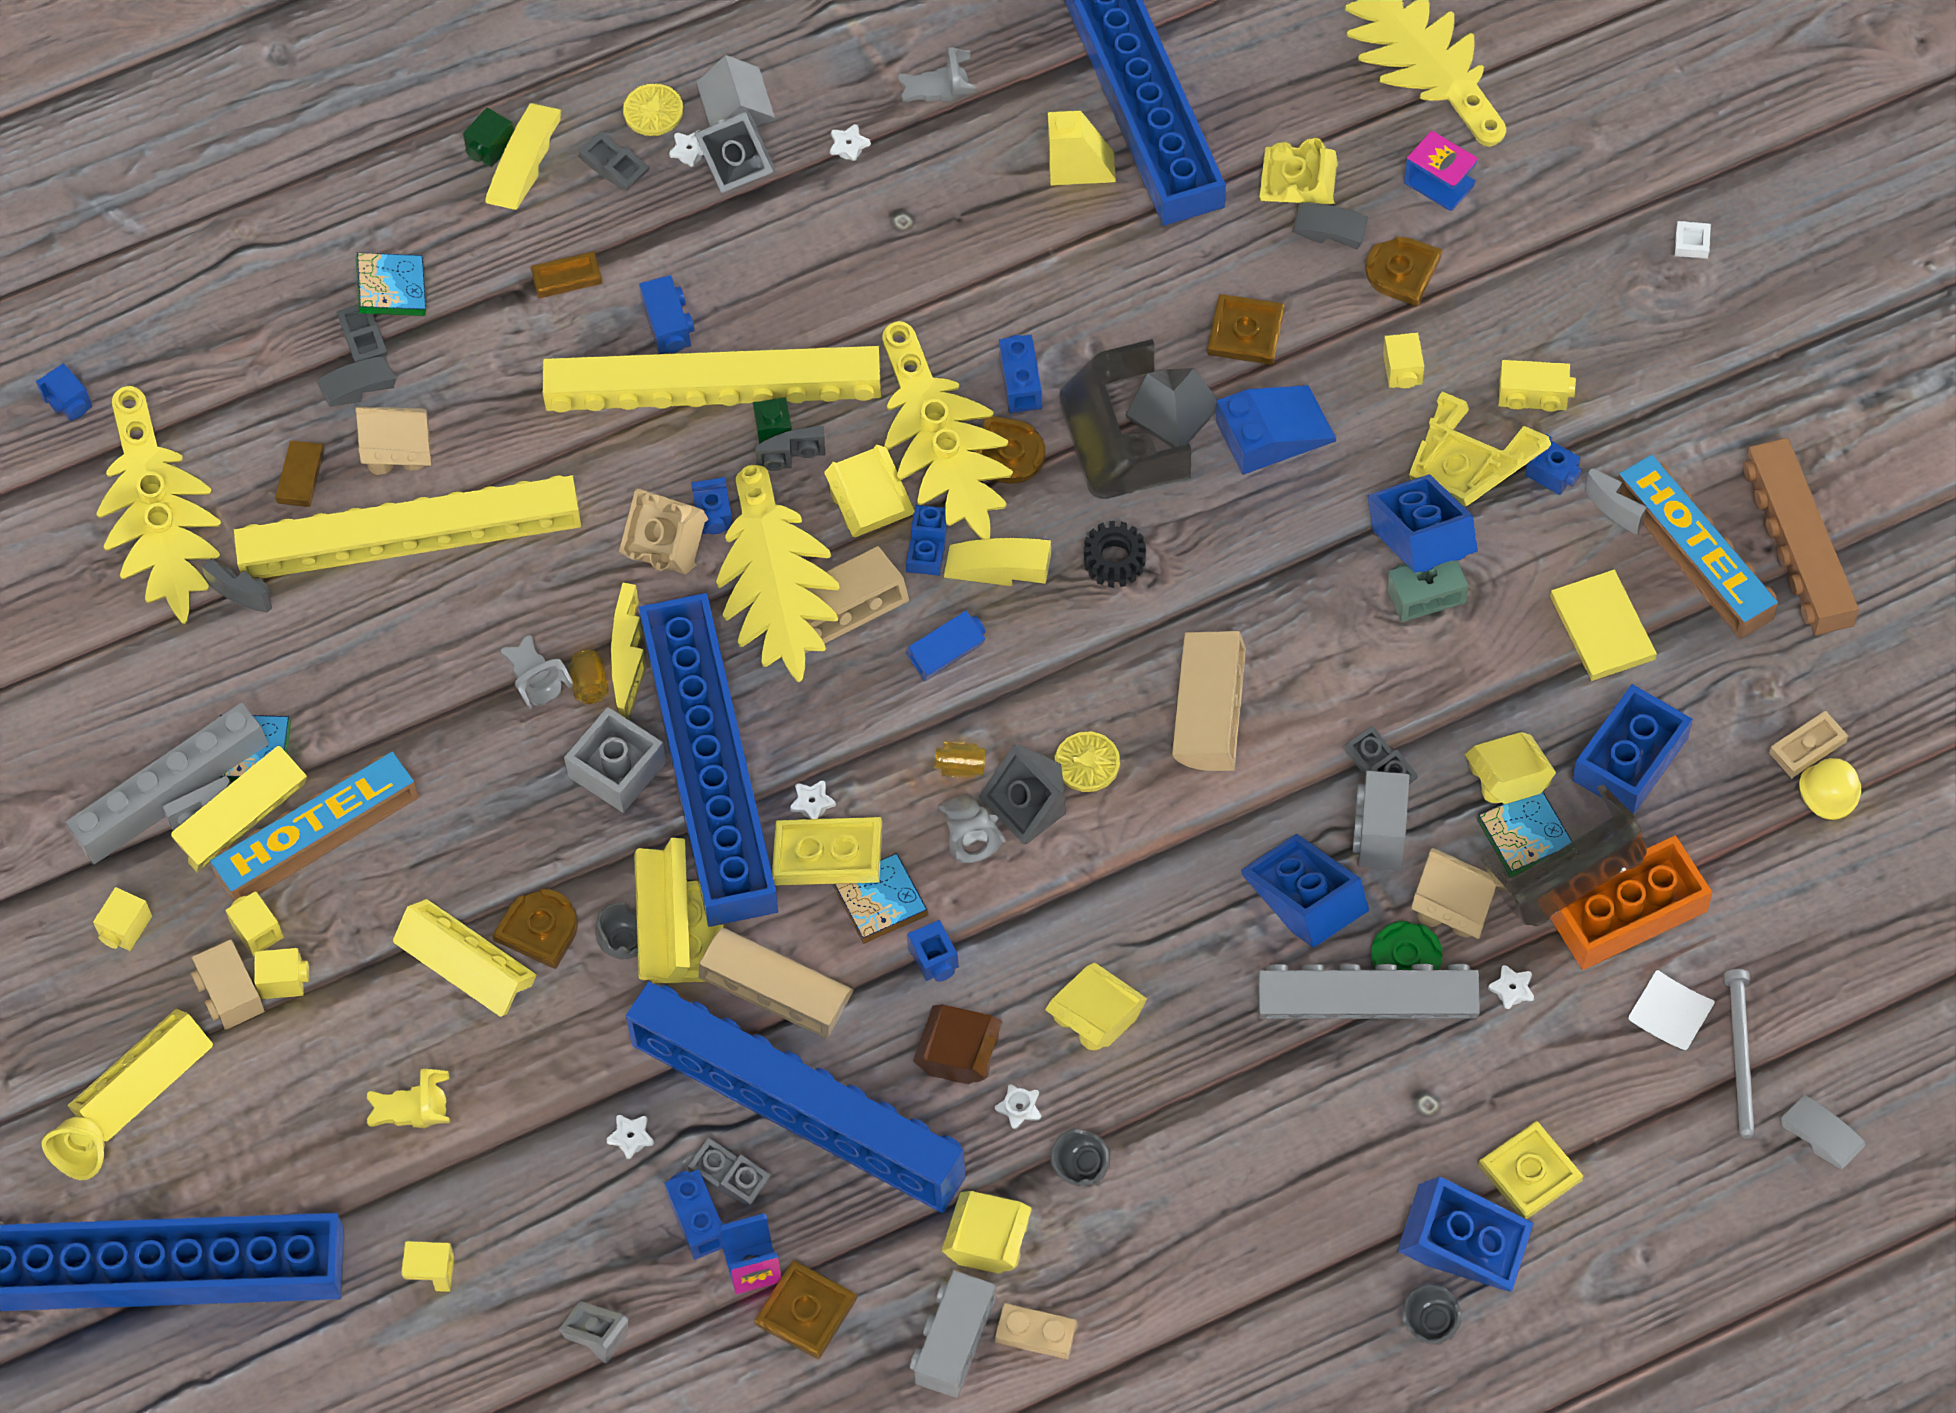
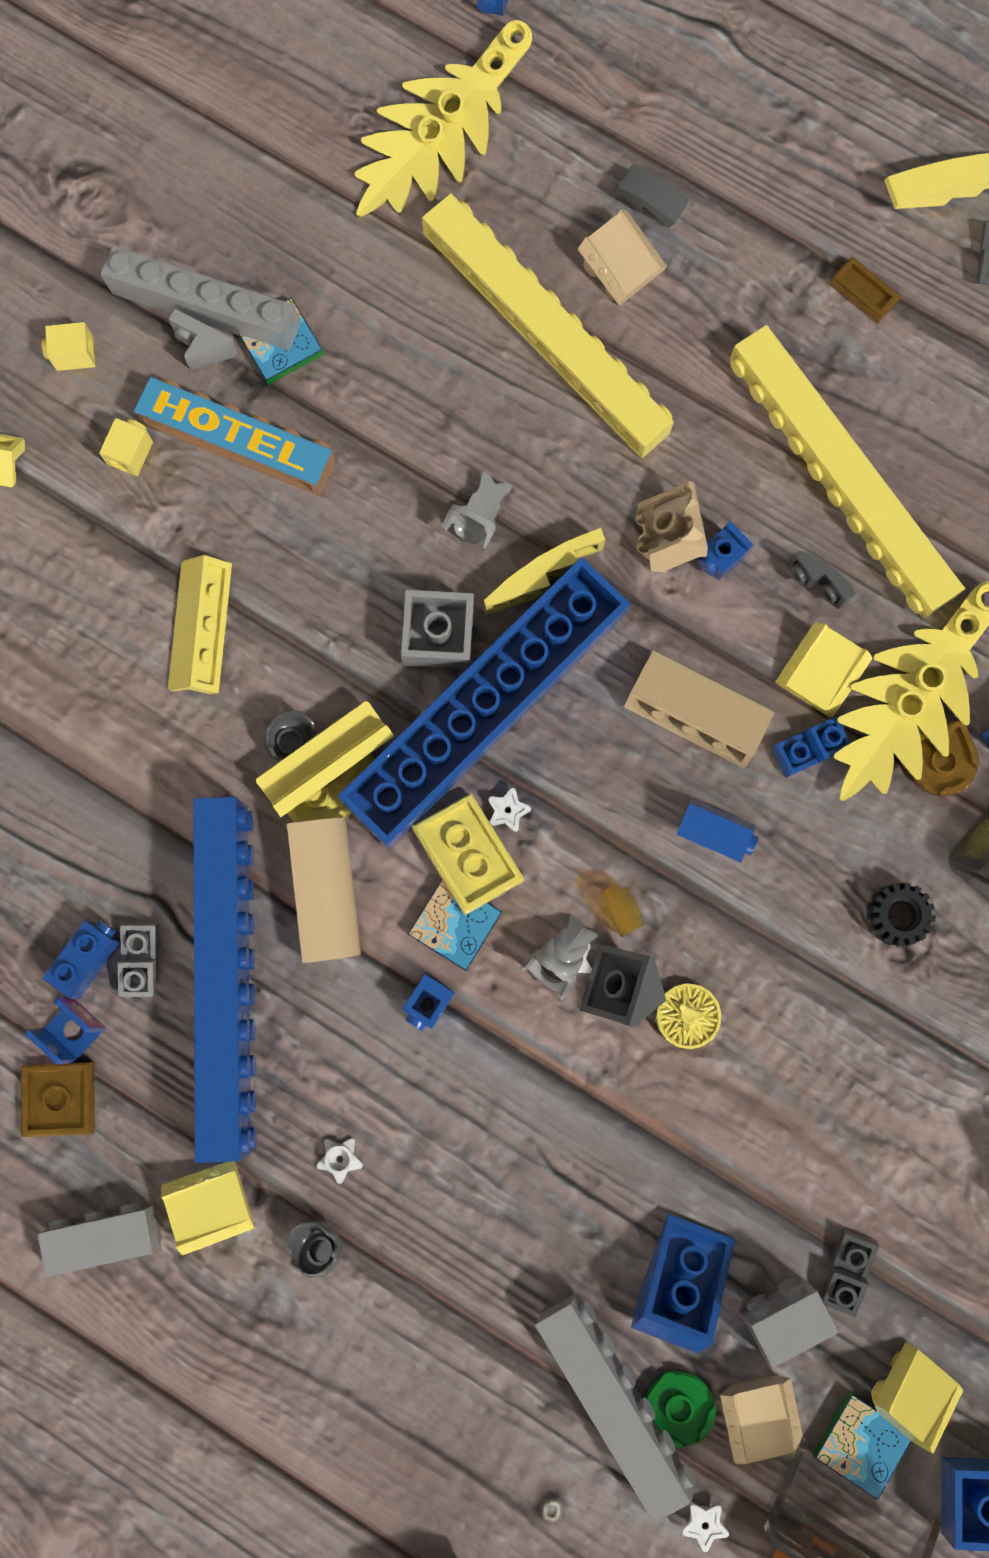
camera: 55 degrees right, 20 degrees up
(227, 984) = (62, 462): tan brick -> none
(239, 589) = (412, 245): dark grey slope -> none
(239, 807) = (211, 366): light yellow panel -> none
(280, 973) = (95, 495): light yellow brick -> none
(299, 473) = (543, 210): pearl gold tile -> none
(361, 334) = (701, 169): dark grey slope -> none
(390, 284) = (759, 159): tile -> none
(419, 1107) = (50, 678): light yellow hair -> none
(488, 137) = (948, 139): dark green brick -> none
(539, 926) = (263, 666): pearl gold tile -> none
(588, 677) = (502, 557): clear yellow brick -> none
(637, 1142) = (127, 869): white plate -> none
(665, 315) = (873, 399): blue brick -> none
(771, 418) = (835, 546): dark green brick -> none
(774, 575) = (687, 646): light yellow plant -> none
(957, 1044) = (361, 1074): reddish brown slope -> none
(999, 560) = (828, 821): light yellow slope -> none
(1036, 1331) = (146, 1302): tan plate -> none
(1096, 1007) = (465, 1170): light yellow slope -> none
(1209, 700) = (811, 1086): tan brick -> none

